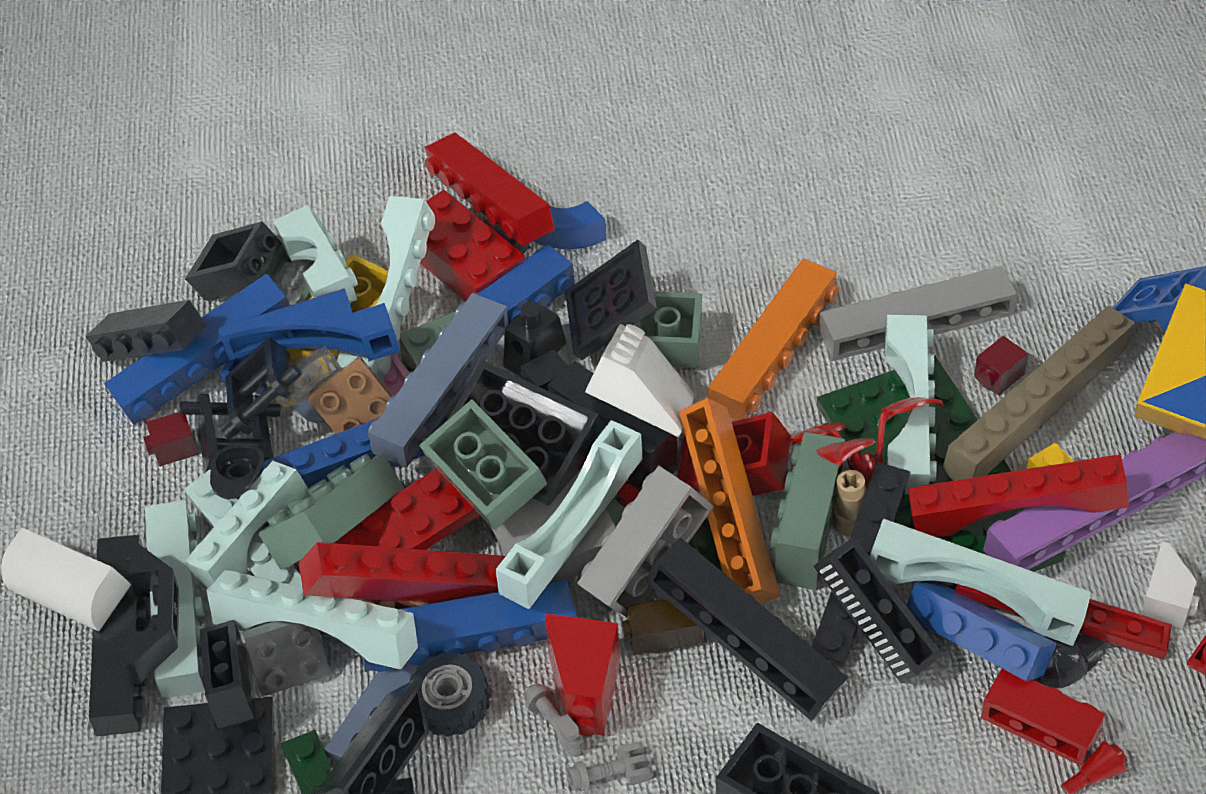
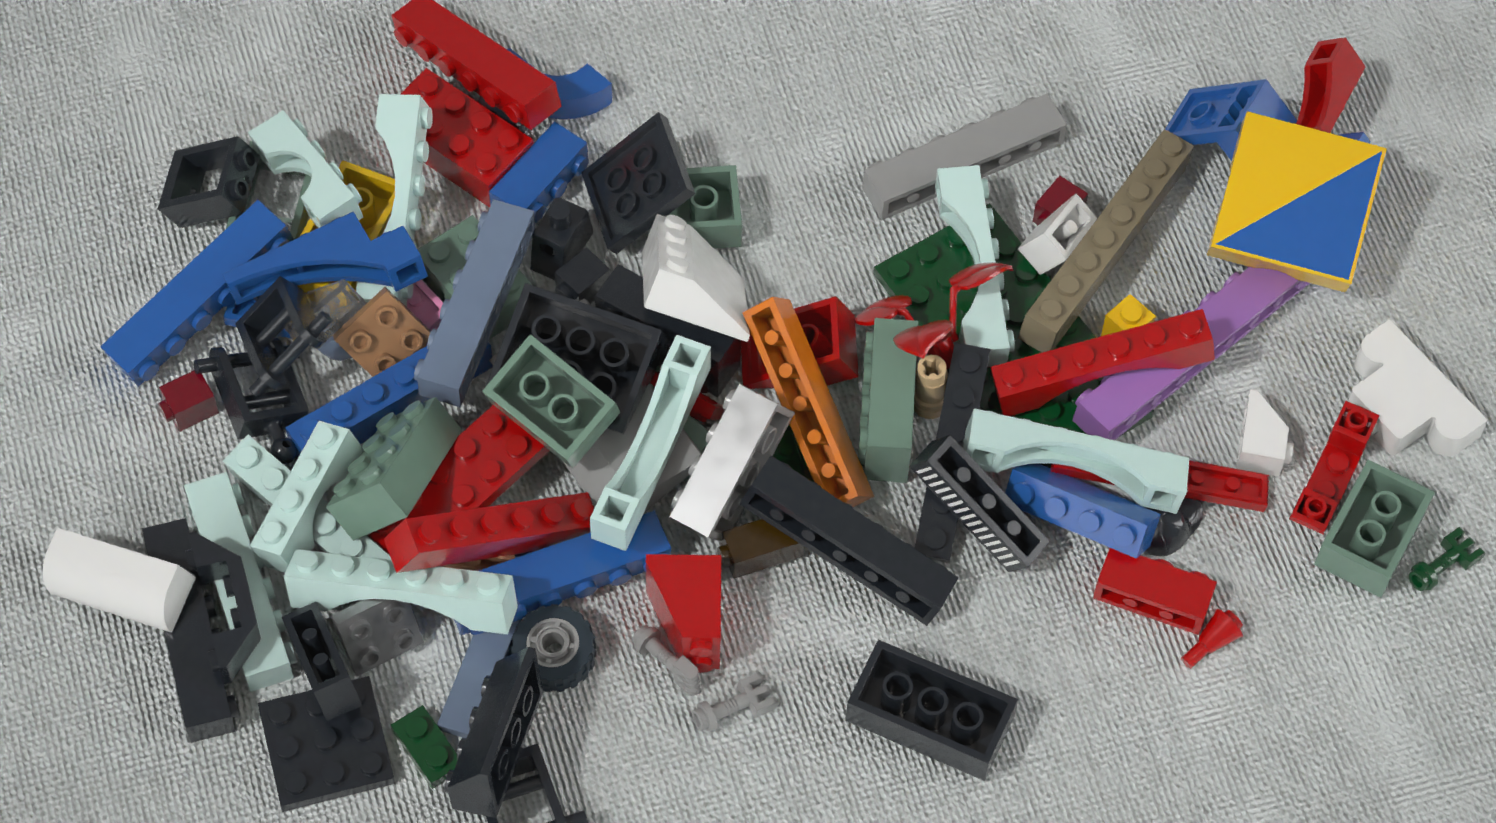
camera: 15 degrees left, 10 degrees up
(146, 331) = (136, 282): black brick -> none
(235, 470) = (281, 436): black piece -> none
(774, 339) = (817, 205): orange brick -> none
(992, 384) = (1058, 235): none -> white slope

